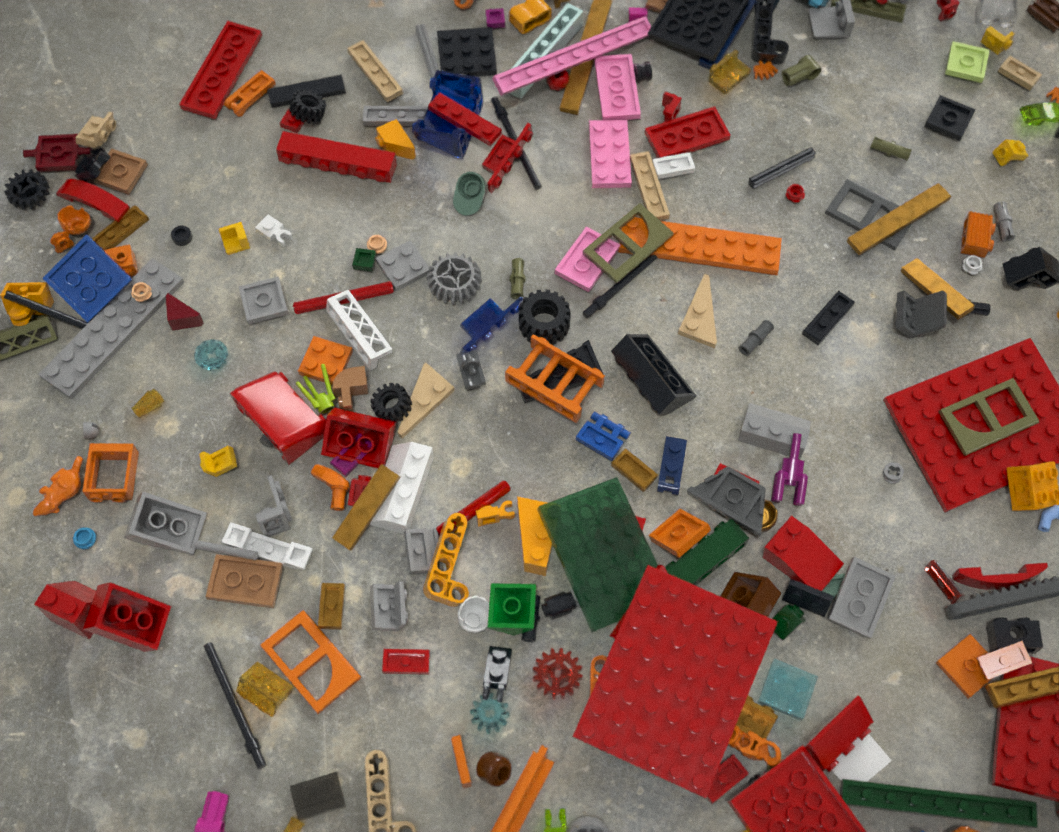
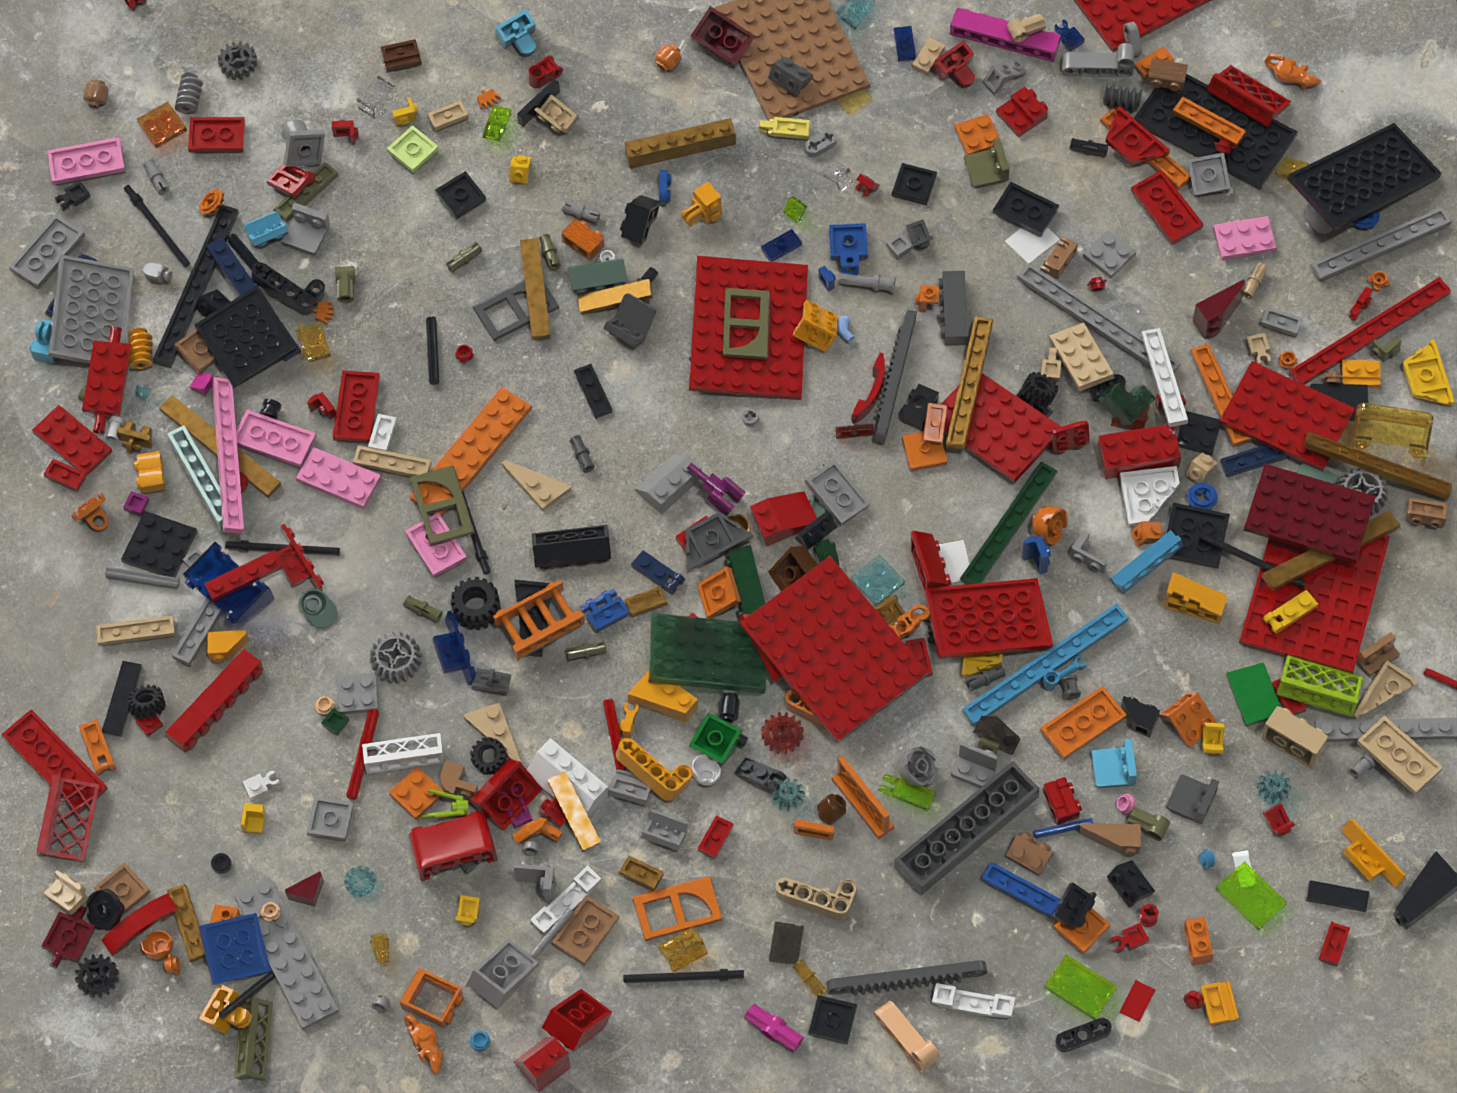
camera: 60 degrees left, 0 degrees up
(164, 86) = (50, 817): none -> red fence
(314, 487) = (531, 848): none -> light grey hinge
(550, 439) = (586, 650): none -> olive pin
(944, 214) = (549, 252): none -> olive pin
(948, 262) = (597, 275): none -> sand green brick

